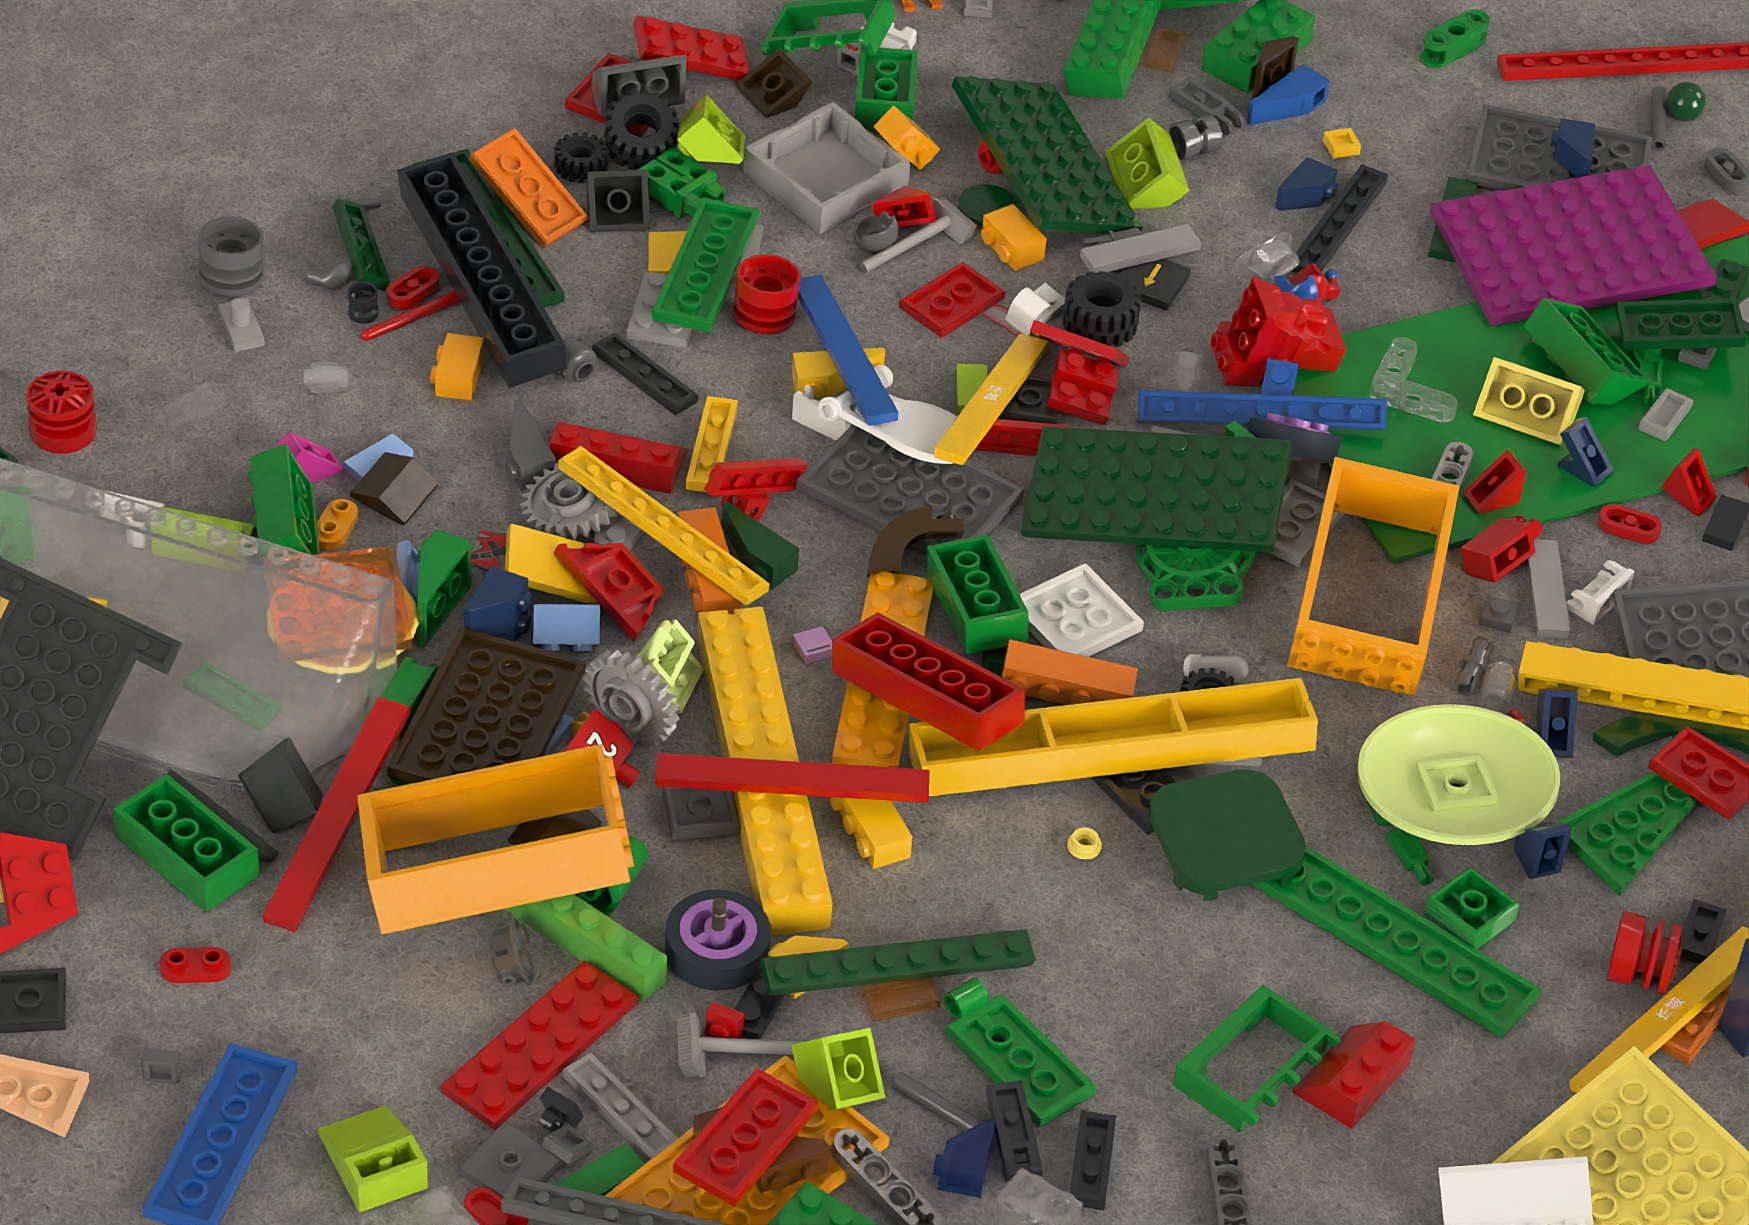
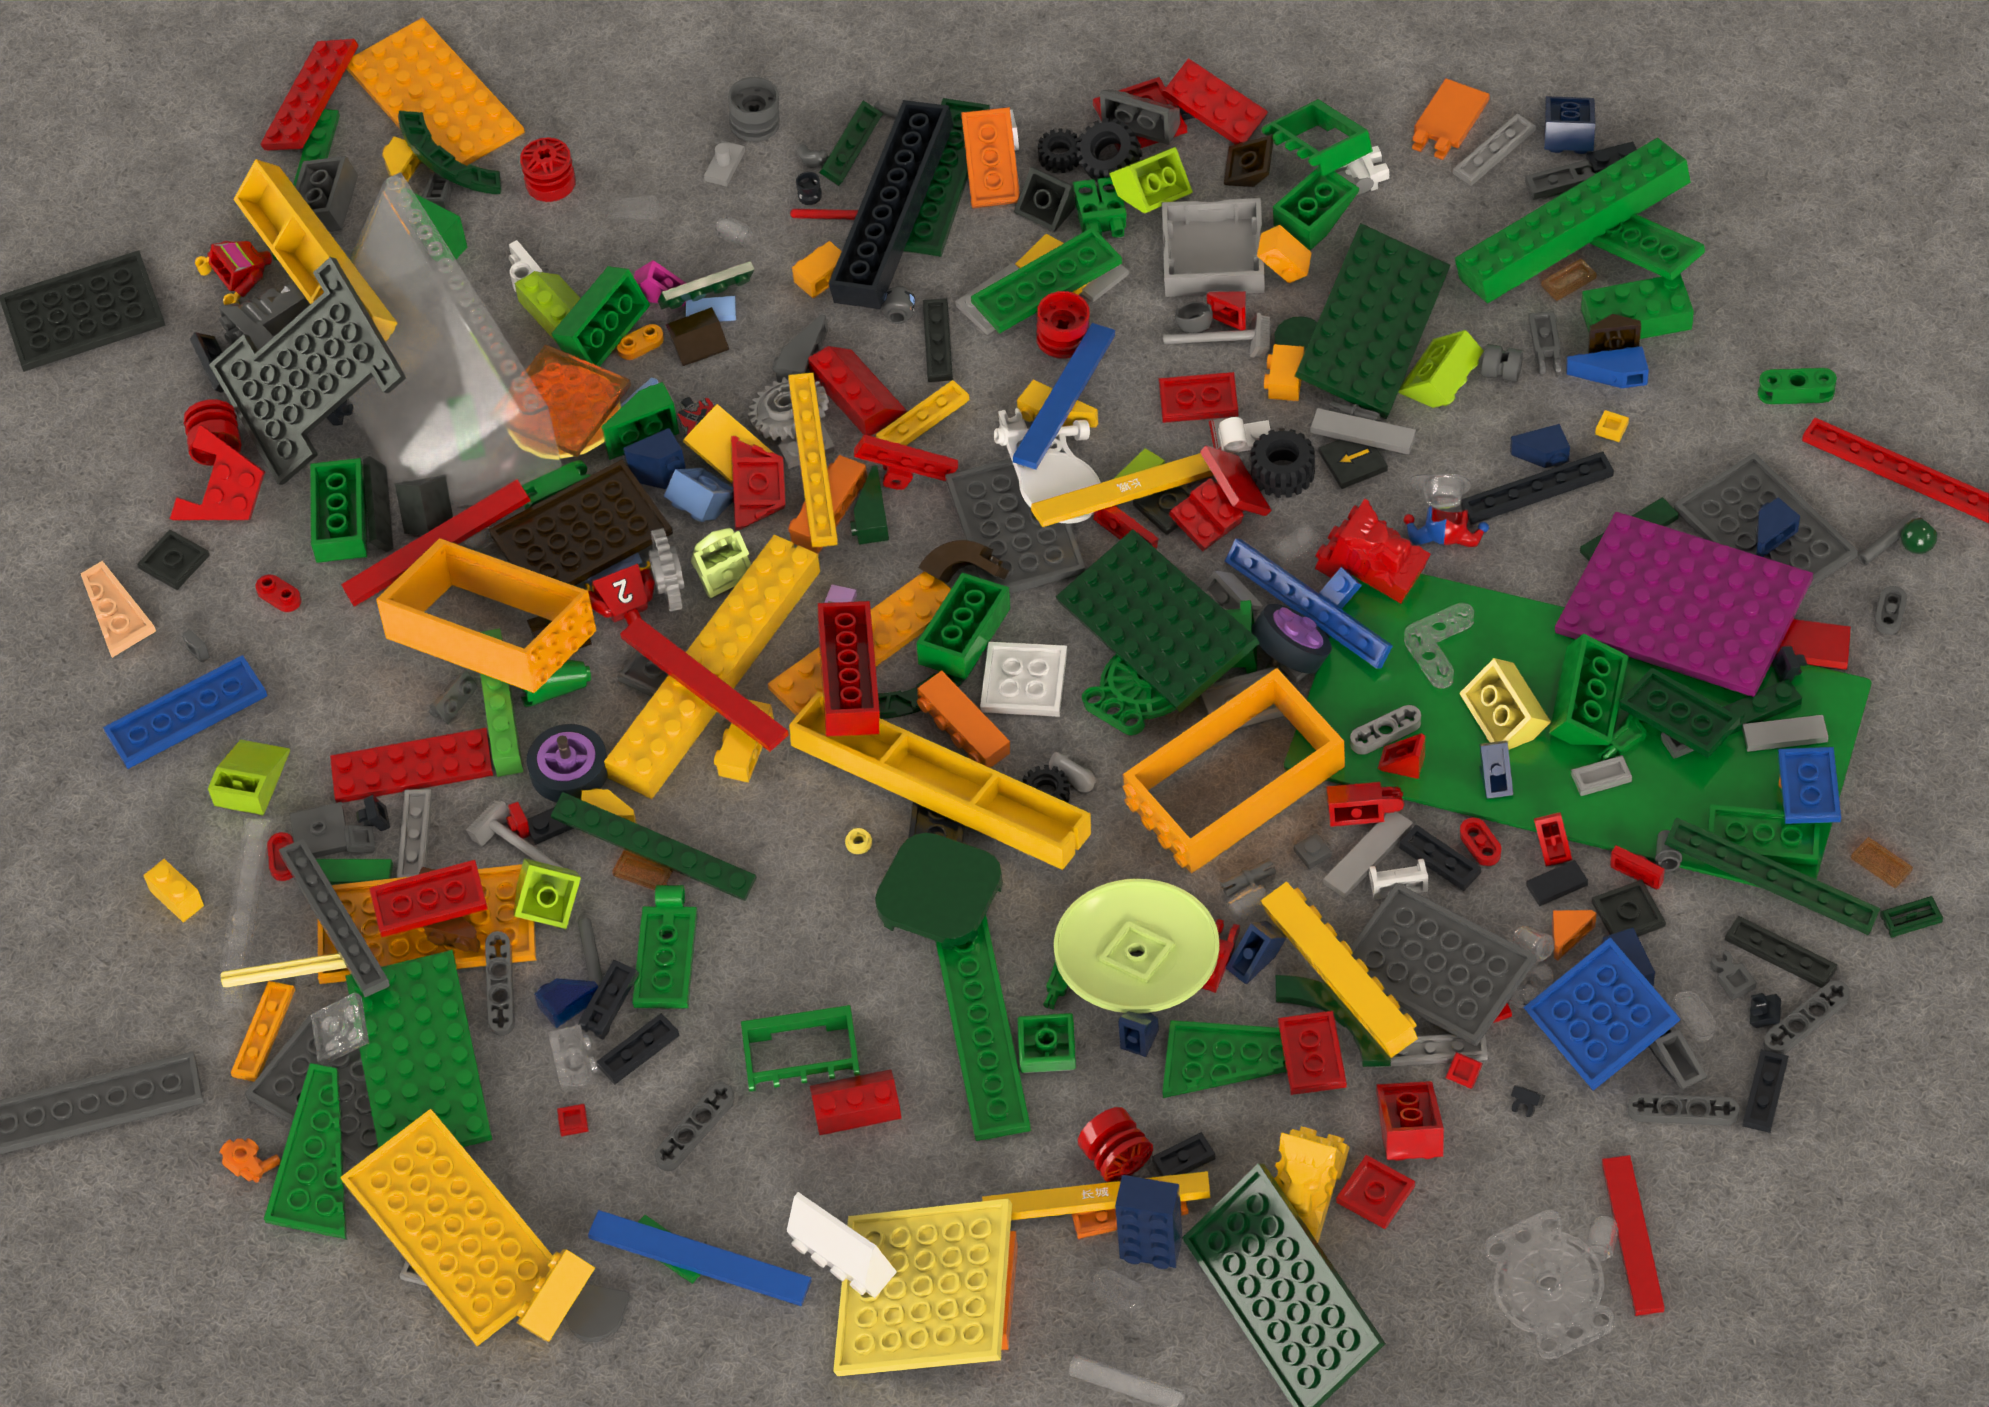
camera: 50 degrees right, 10 degrees up
(355, 441) = (699, 288): none -> dark green plate
(413, 287) = (851, 193): red plate -> none
(1592, 554) = (1440, 857): none -> black plate
(1712, 246) = (1788, 664): none -> black tile

